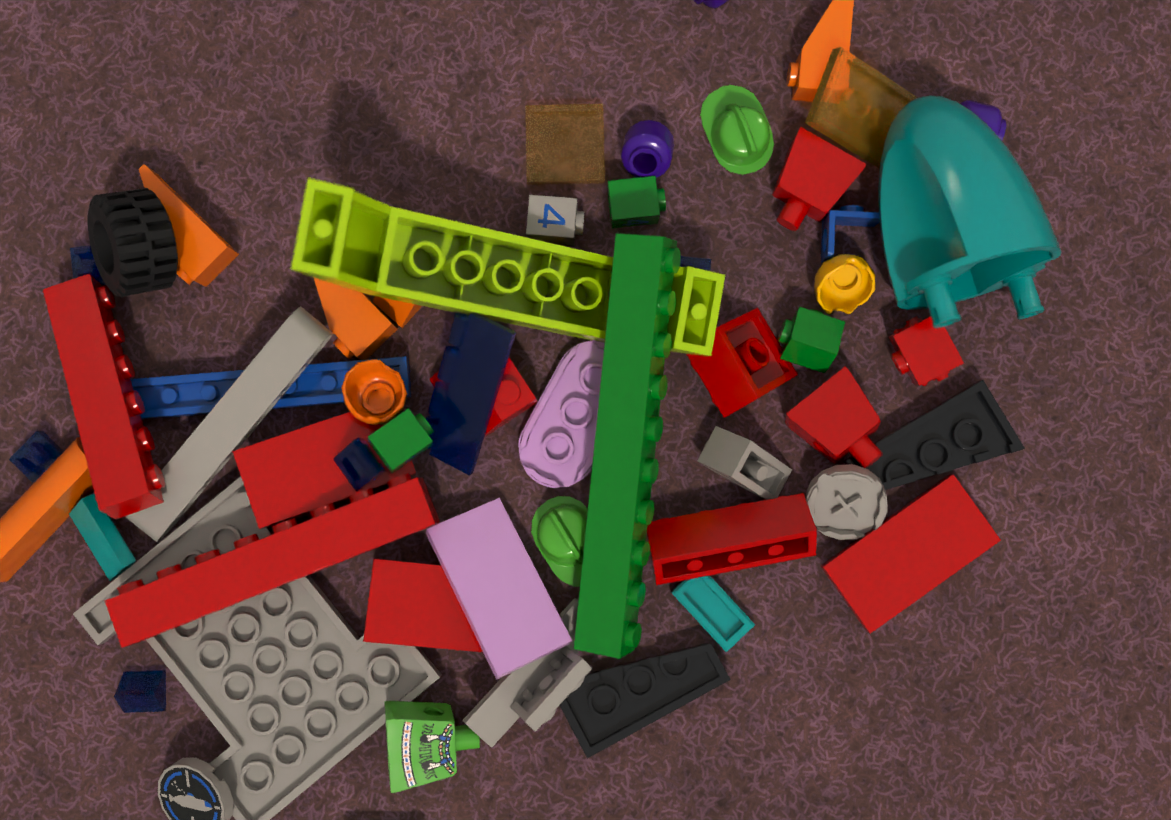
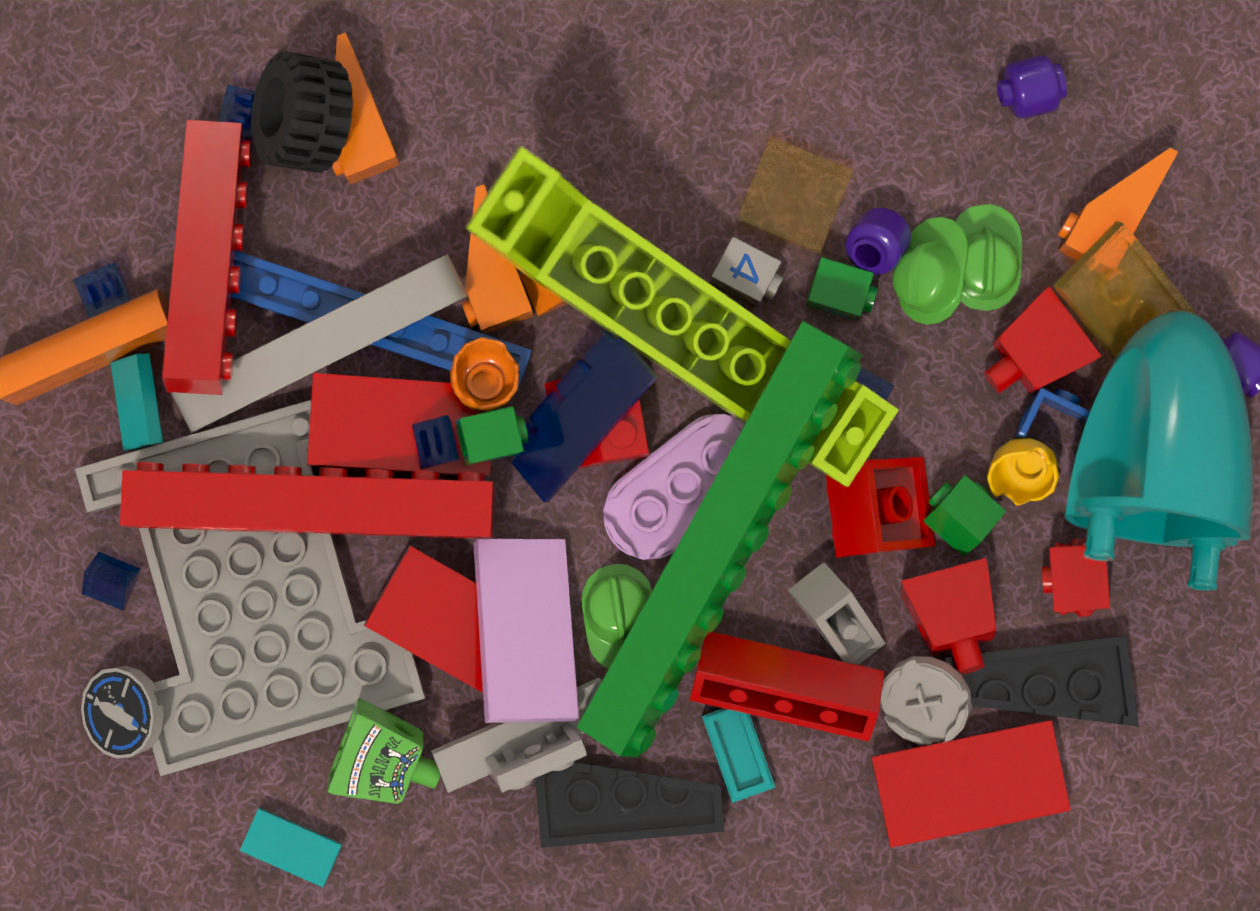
camera: 25 degrees right, 0 degrees up
(701, 156) = (932, 271): none -> bright green piece

